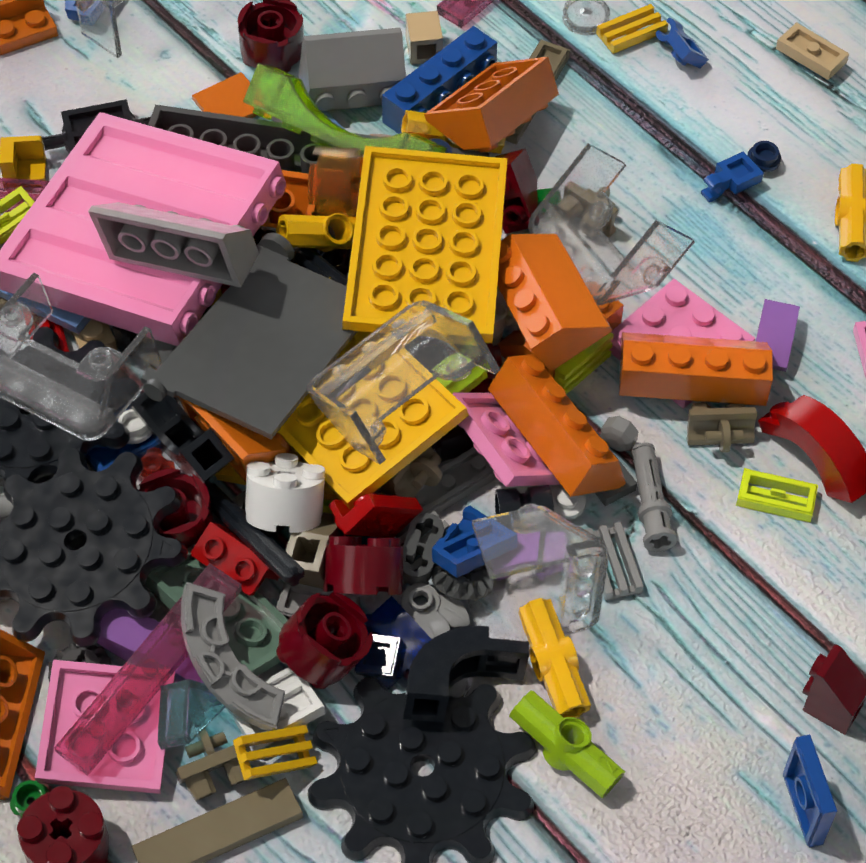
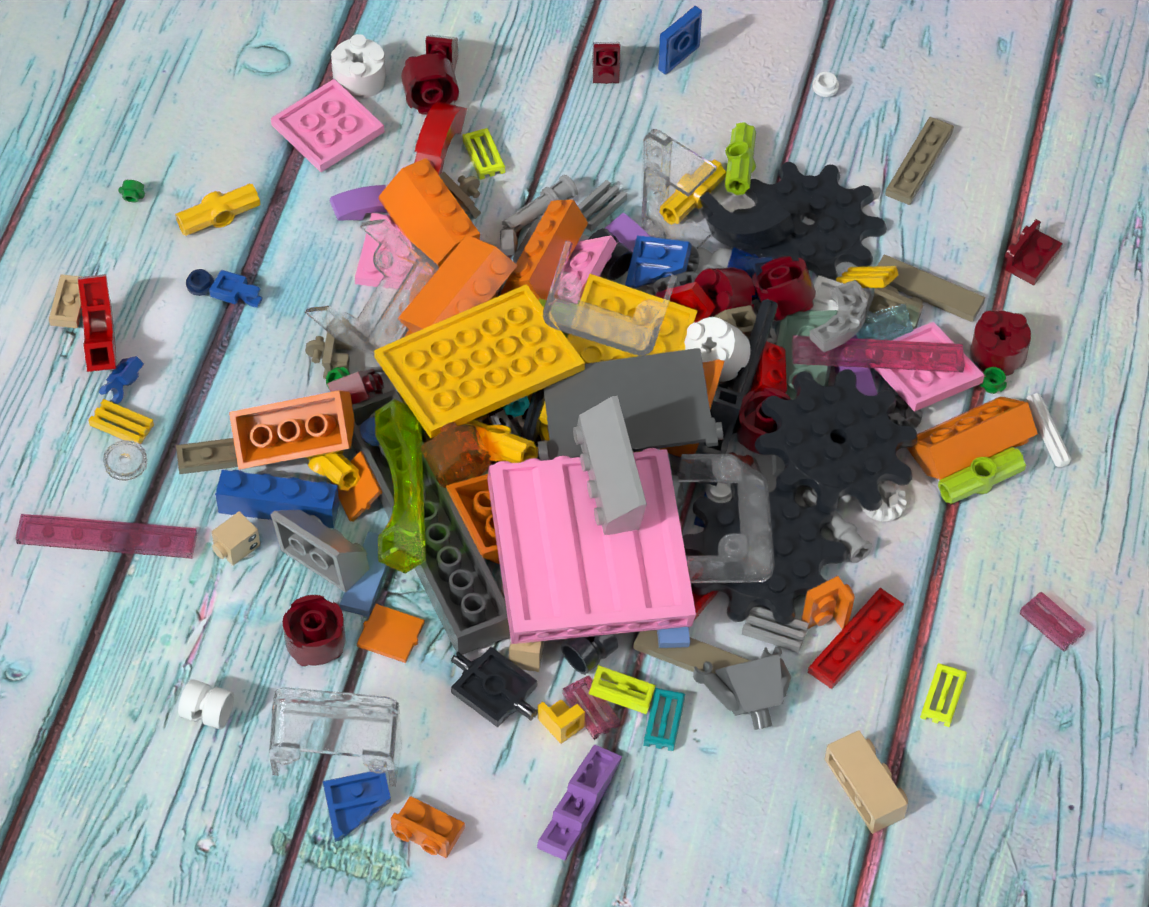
camera: 125 degrees left, 0 degrees up
(748, 52) = (98, 323): none -> red arch

